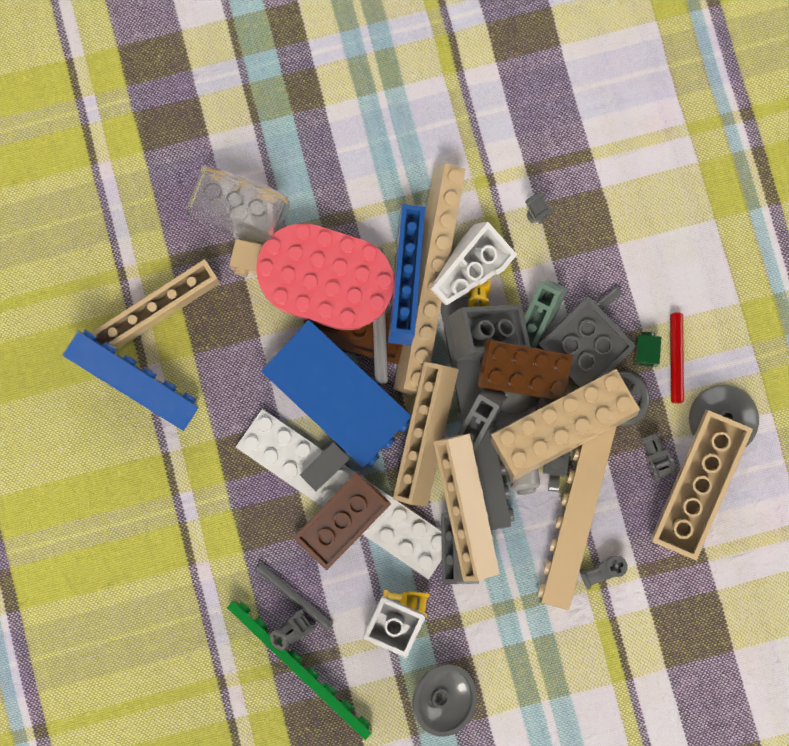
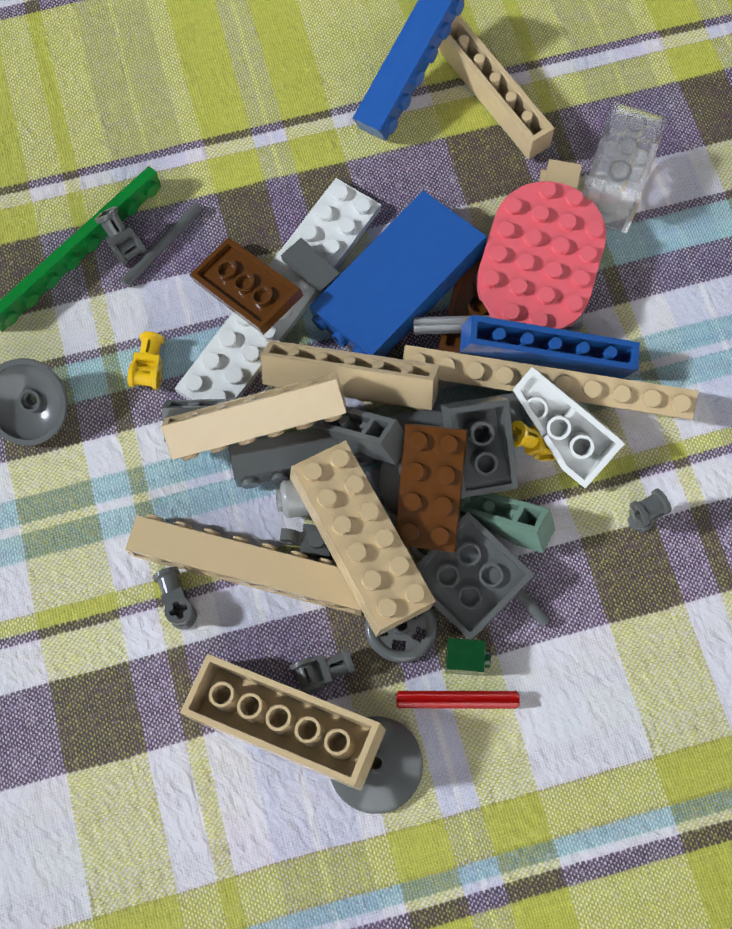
camera: 90 degrees right, 10 degrees down
(393, 626) = (113, 340): light grey slope -> none

